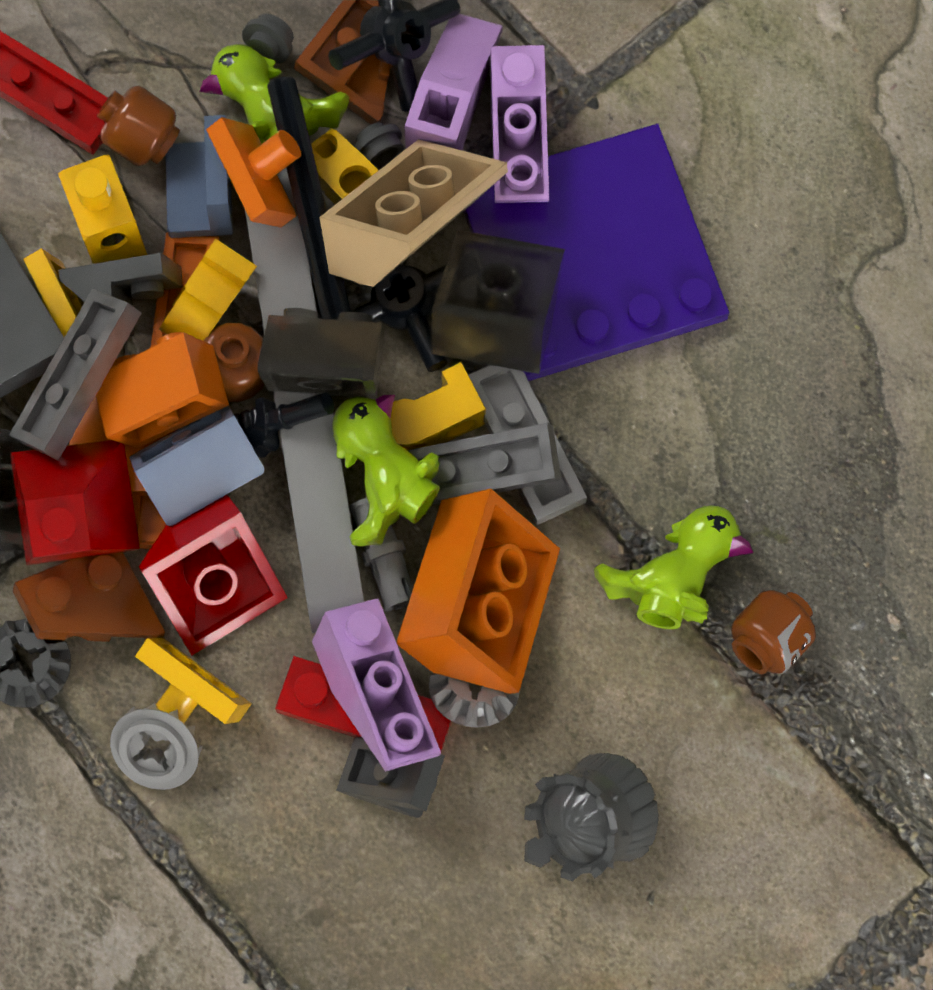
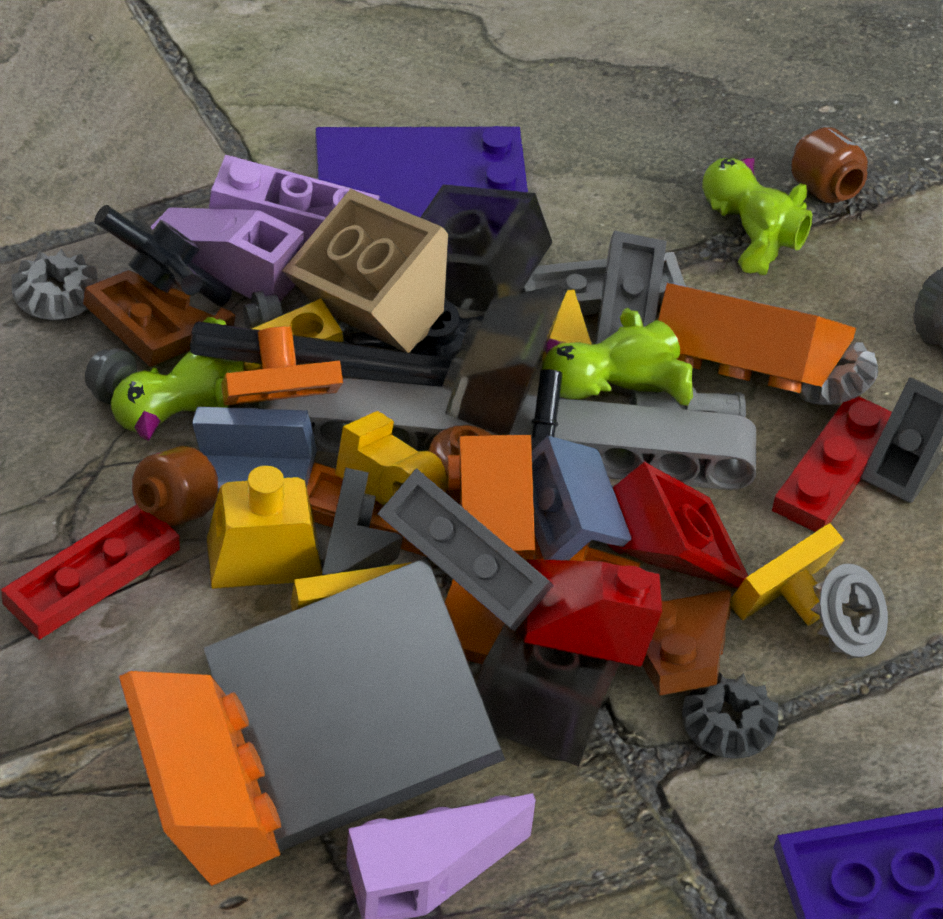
camera: 80 degrees left, 25 degrees down
(374, 684) = (826, 414): lavender slope -> none

